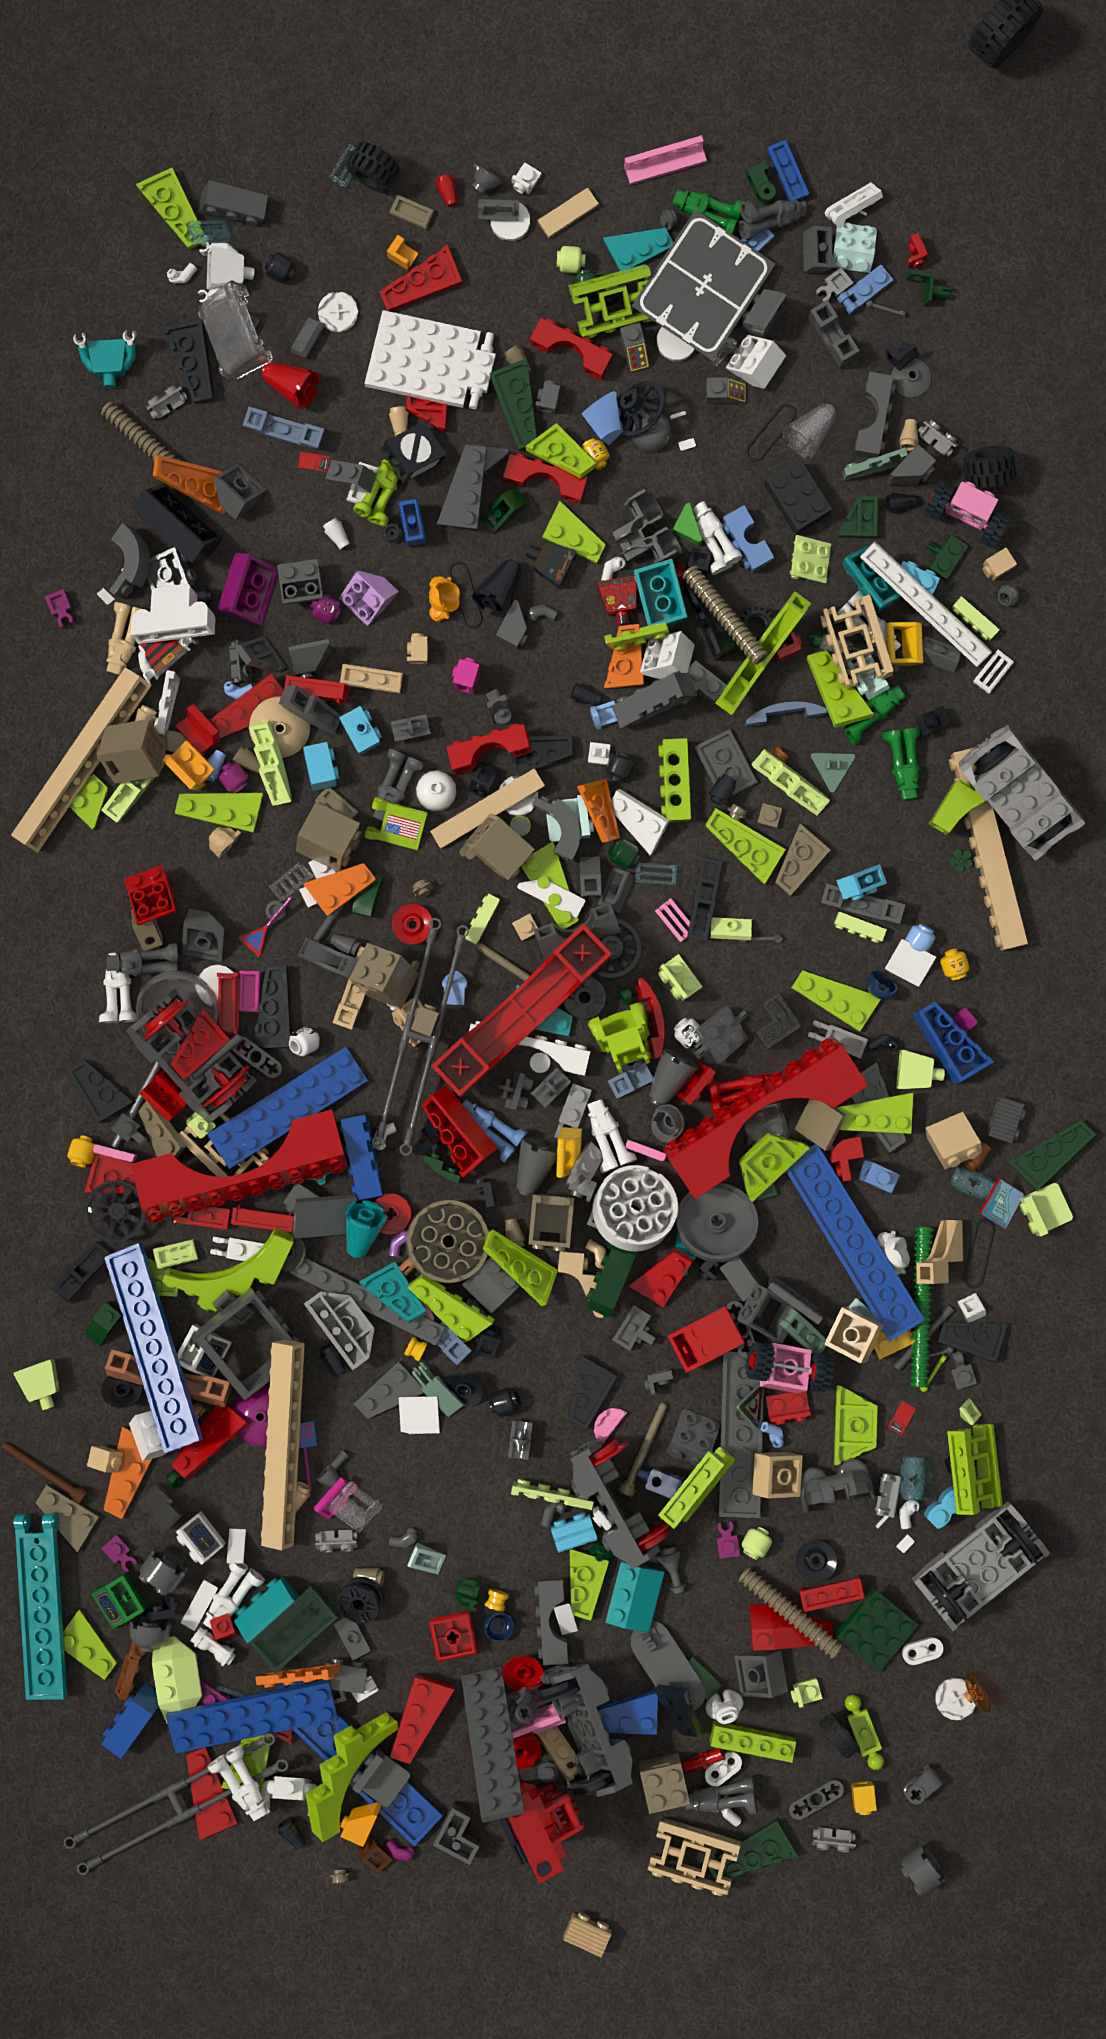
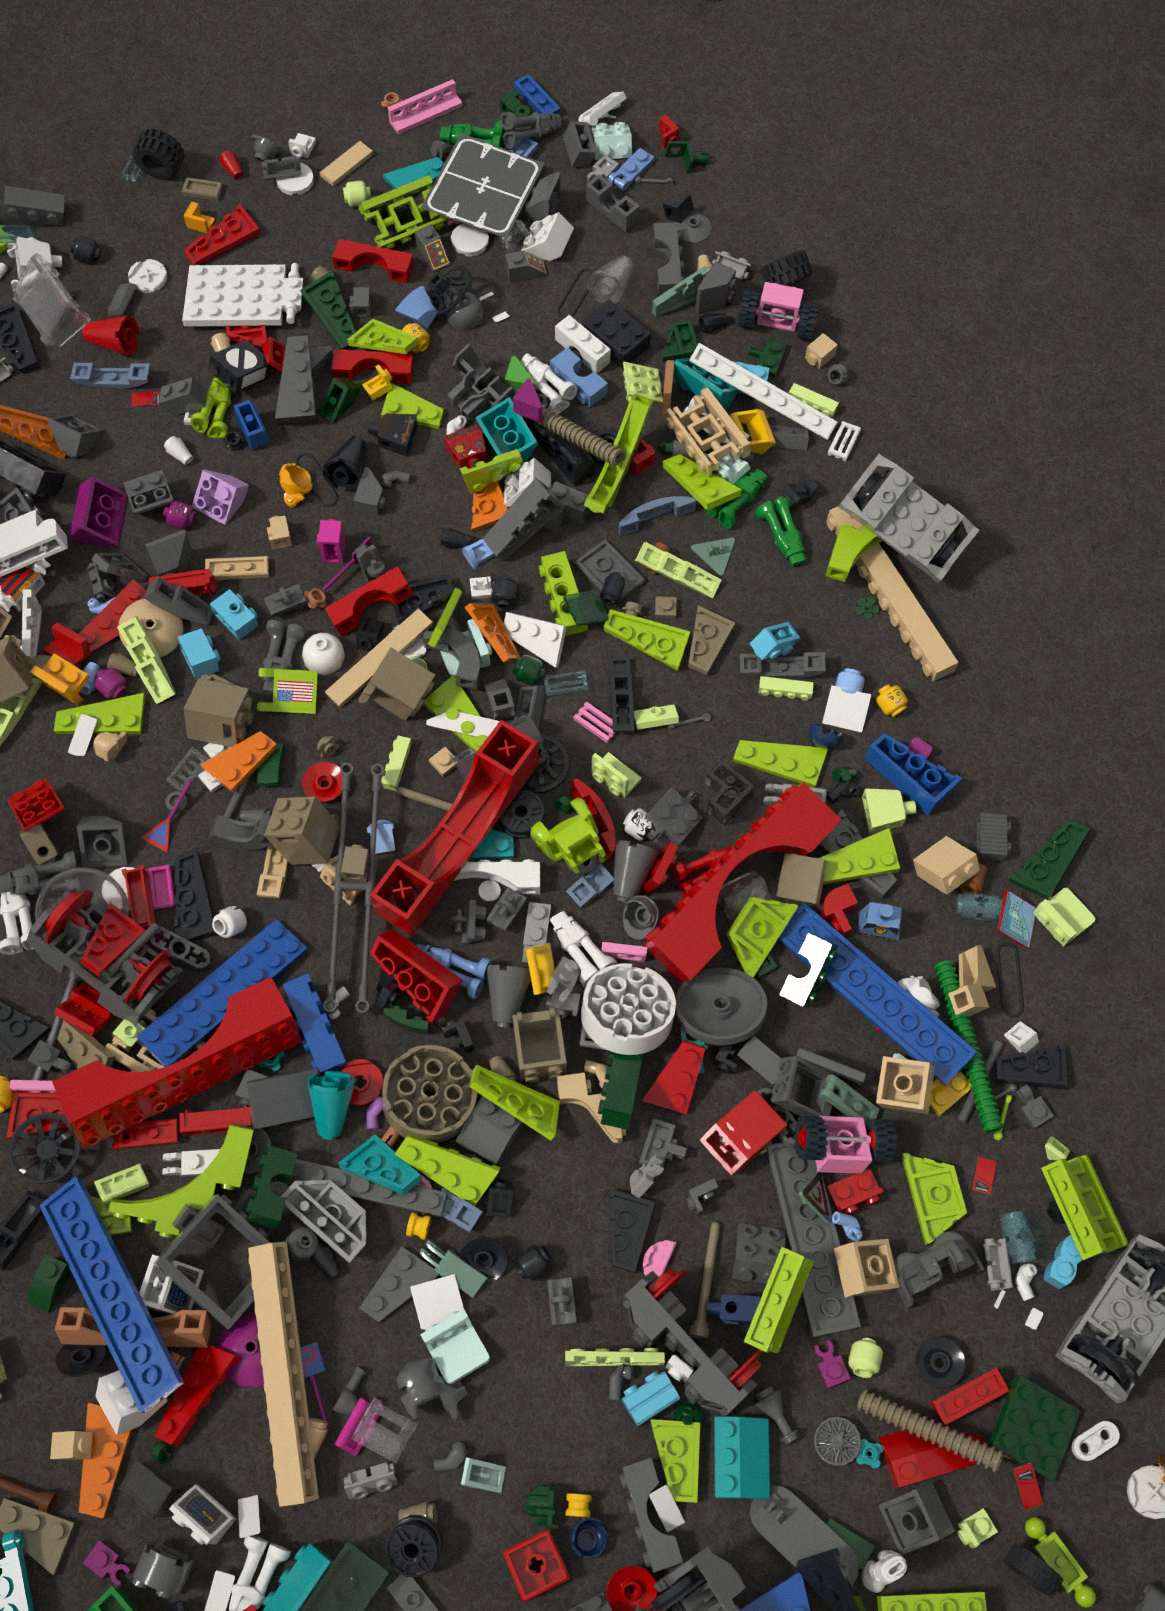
camera: 15 degrees left, 20 degrees down
(200, 824) = (82, 735): none -> white sticker
(291, 1308) = (265, 1206): none -> dark green arch
(315, 1336) = (301, 1244): none -> dark grey head
(395, 1480) = (425, 1384): none -> dark grey piece
(426, 1456) = (455, 1346): none -> light aqua bracket
(444, 730) = (315, 598): none -> nougat plate
(450, 446) = (274, 353): none -> red slope
(473, 705) = (367, 542): none -> magenta piece
(546, 502) = (378, 385): none -> yellow bracket
(557, 787) = (441, 625): none -> lime tile
(612, 1354) = (643, 1178): none -> light grey plate
(632, 136) = (390, 99): none -> nougat plate
(687, 573) = (527, 402): none -> magenta slope
(692, 805) = (585, 608): none -> clear green piece
(715, 1600) = (837, 1441): none -> dark grey wheel
(740, 1622) = (873, 1460): none -> teal plate
(758, 495) = (593, 351): none -> white arch
(814, 1198) = (820, 954): none -> arch
(833, 575) = (668, 383): none -> medium nougat tile
(857, 1672) = (1028, 1486): none -> red sticker
(889, 1026) = (844, 774): none -> dark green plant

